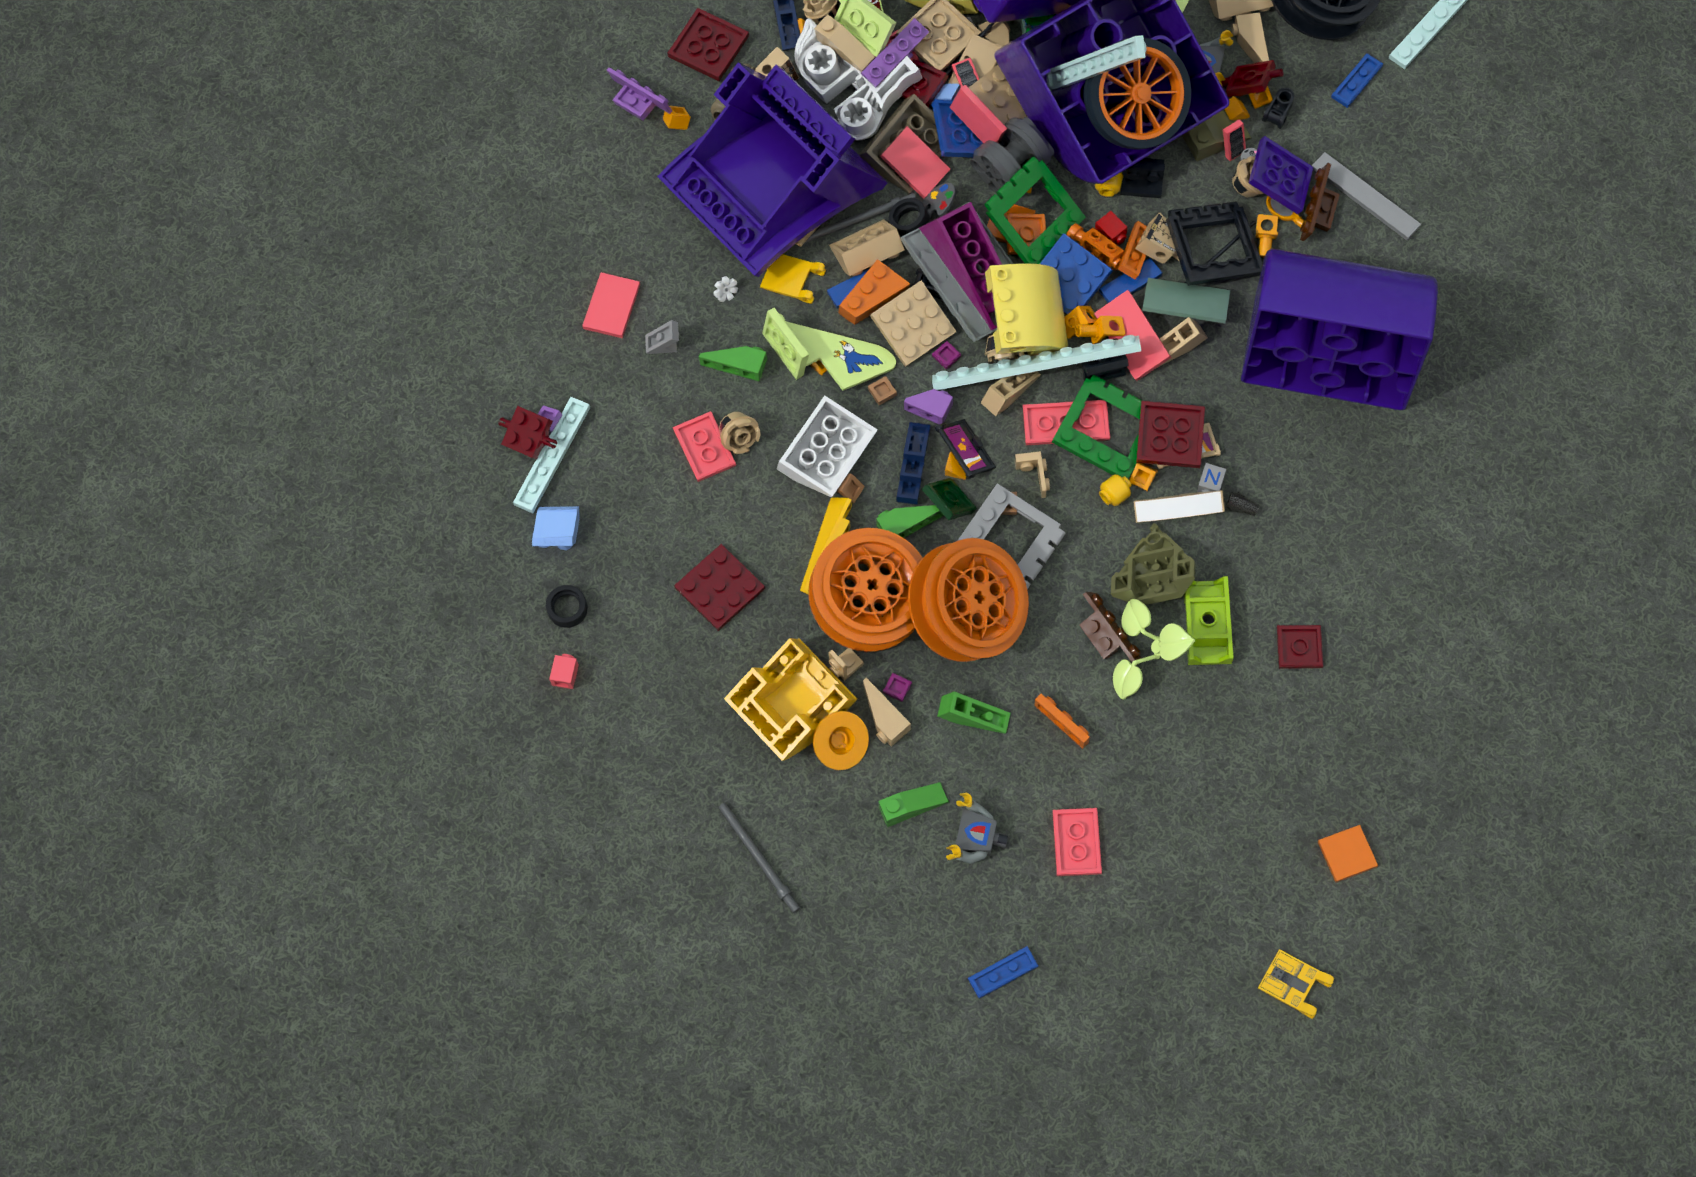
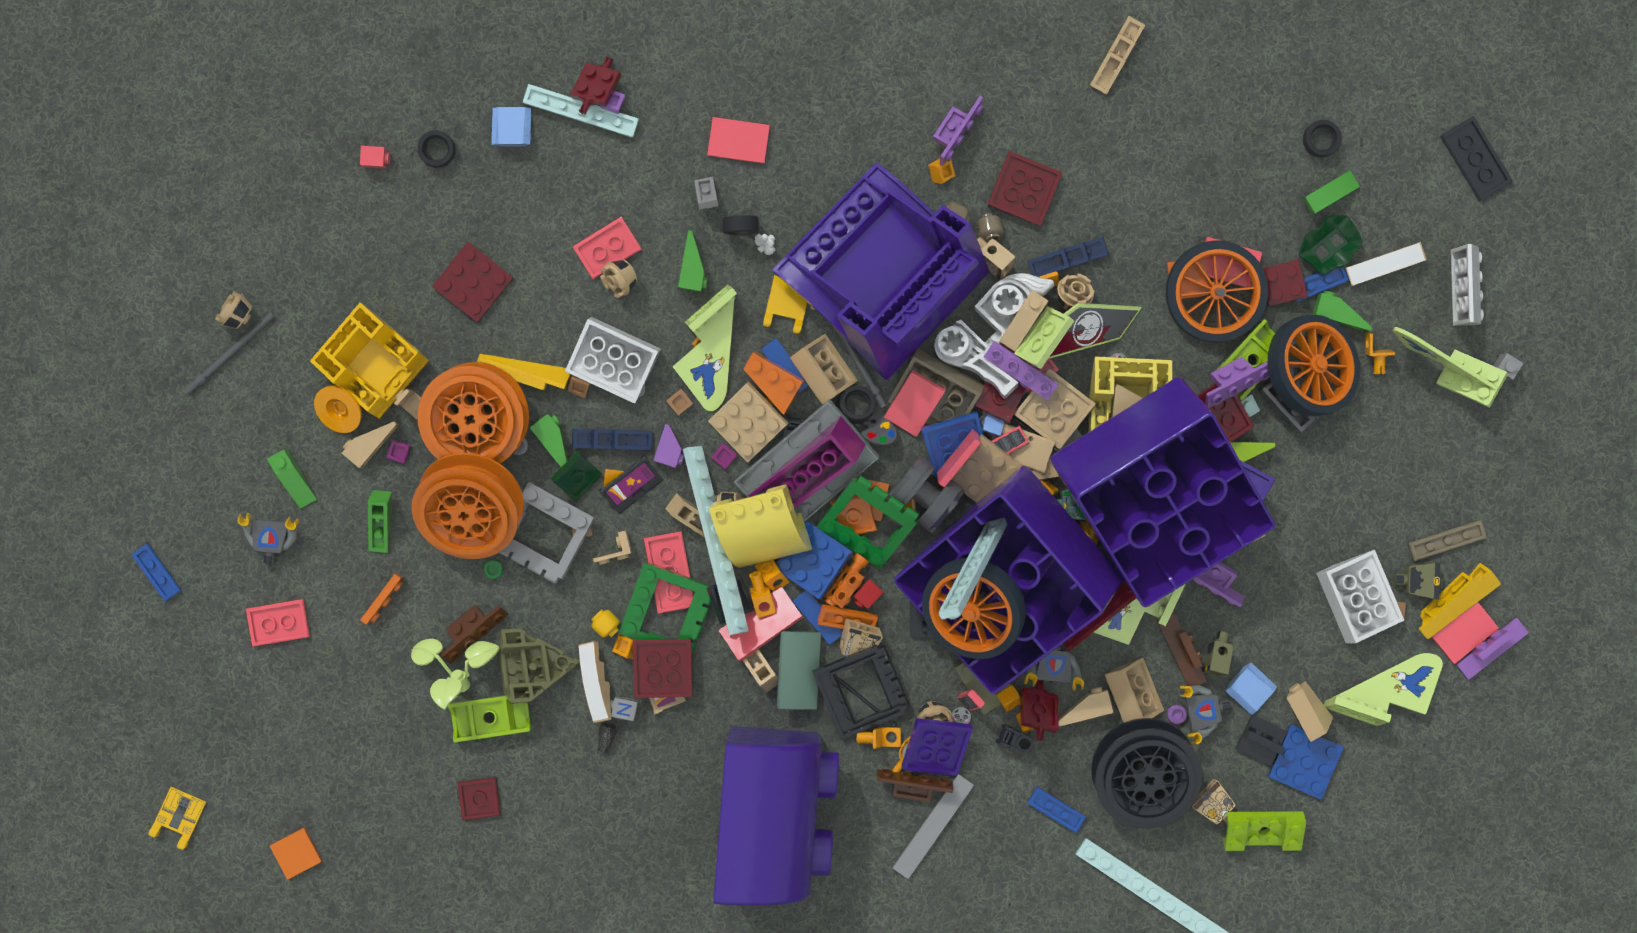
camera: 75 degrees right, 20 degrees up
(701, 306) = (740, 225): none -> black tyre
(712, 840) = (234, 311): none -> tan cone
(1042, 602) = (493, 569): none -> green tile

